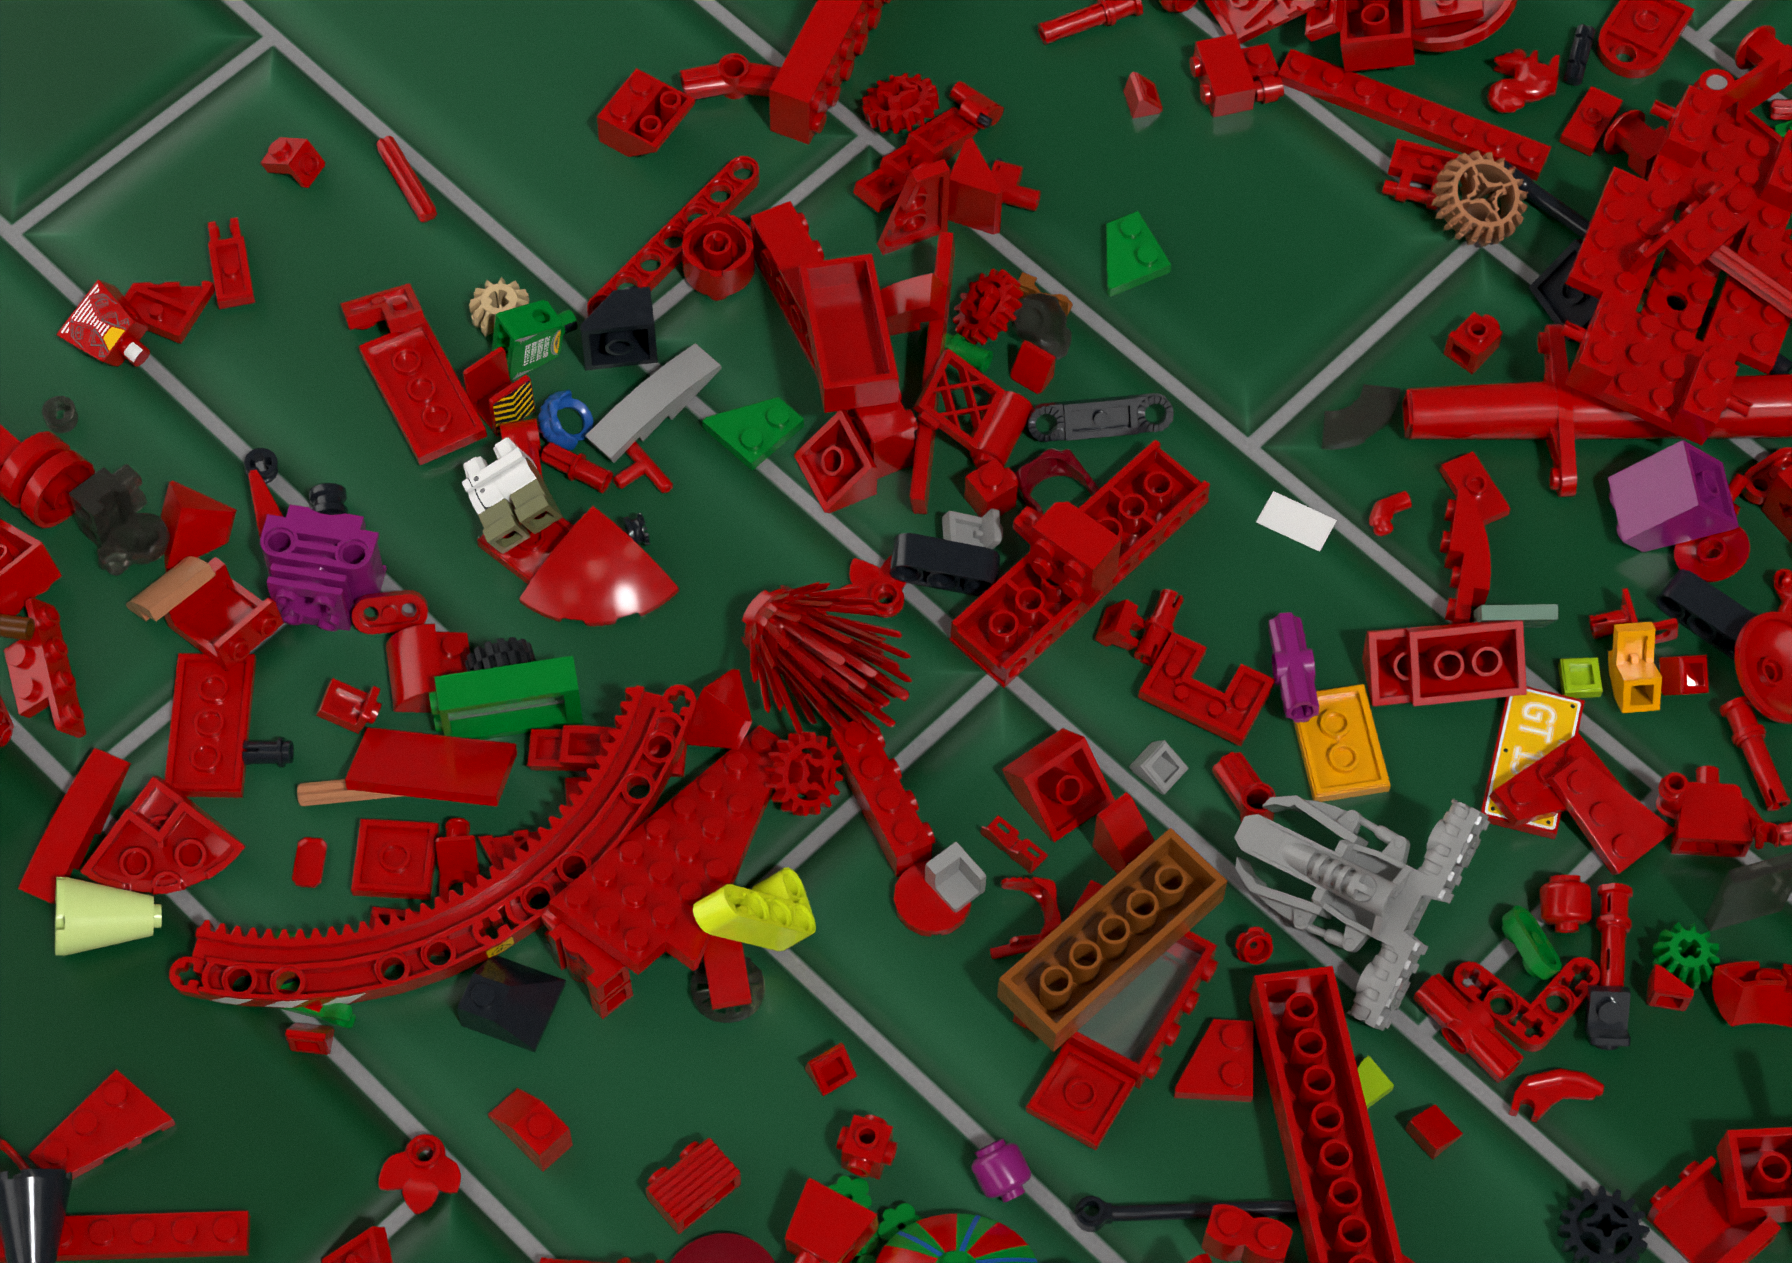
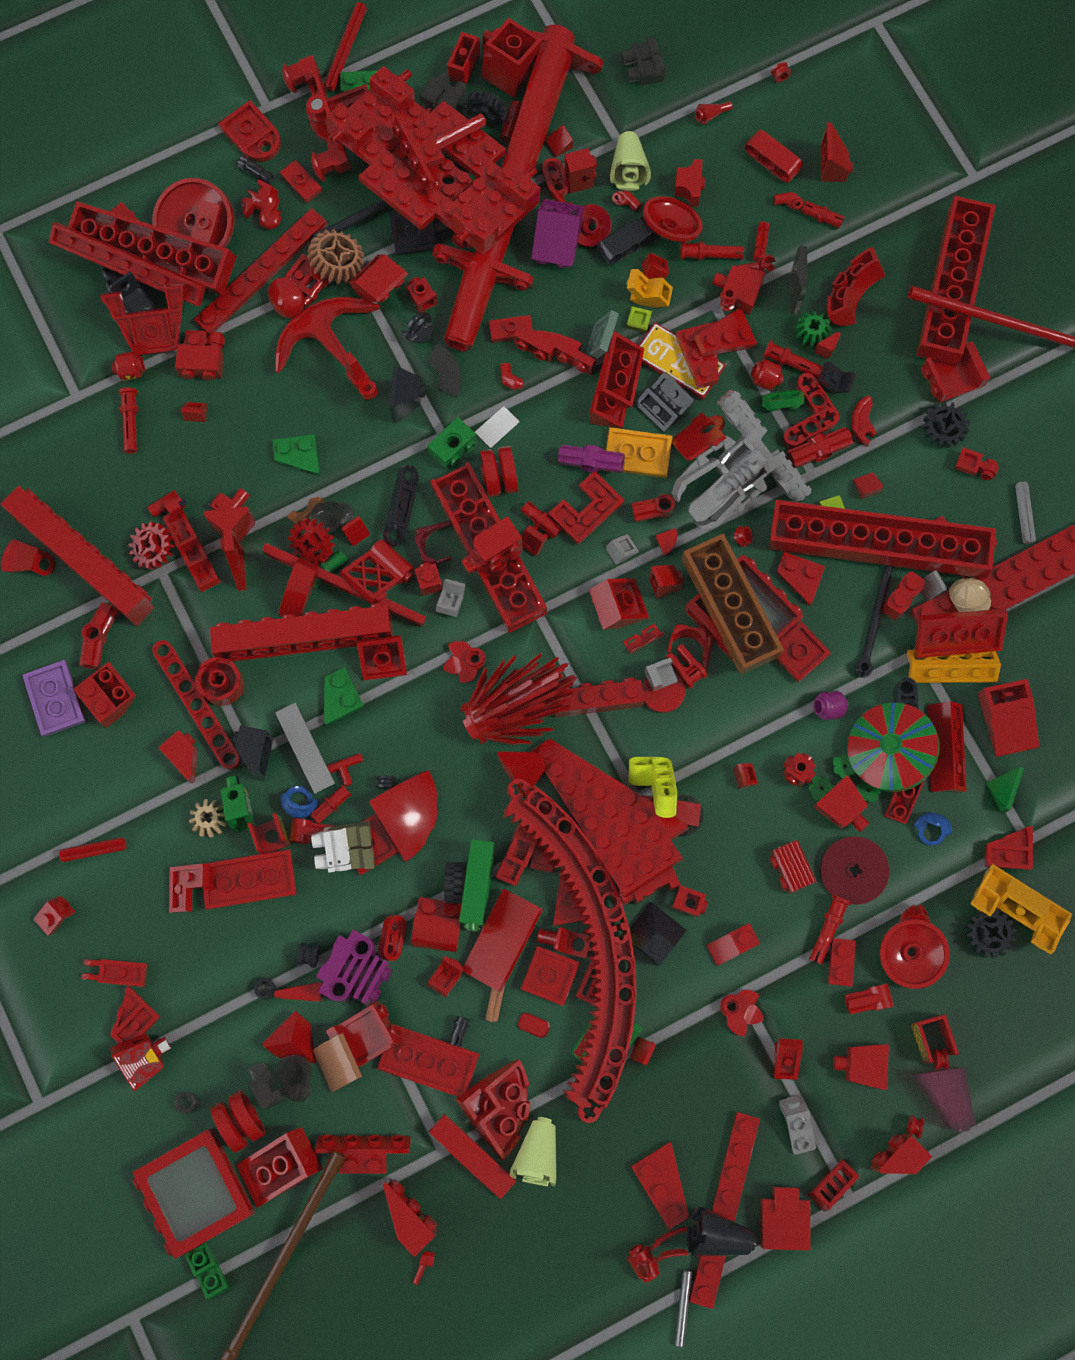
camera: 70 degrees left, 15 degrees up
(576, 1023) = (683, 895): none -> red brick
(587, 244) = (182, 754): none -> red slope
(612, 54) = (53, 698): none -> medium lavender plate
(804, 773) = (574, 735): red gear -> none
(848, 333) = (320, 621): red piece -> none
(944, 564) = (467, 619): black beam -> none
(984, 932) = (688, 674): none -> red piece
(1201, 831) = (667, 541): none -> red tile
(1210, 532) = (496, 472): none -> red wheel
(1227, 442) = (455, 432): none -> green brick
(1286, 360) = (405, 393): none -> black slope
(1354, 210) = (316, 323): none -> red piece
(1379, 156) = (286, 297): none -> red hat
(1394, 813) = (691, 440): none -> red piece
(1408, 361) = (421, 330): none -> black piece
(1447, 758) = (665, 401): none -> black slope
(1465, 264) = (378, 279): none -> red slope
(1604, 623) = (615, 284): red bracket -> none

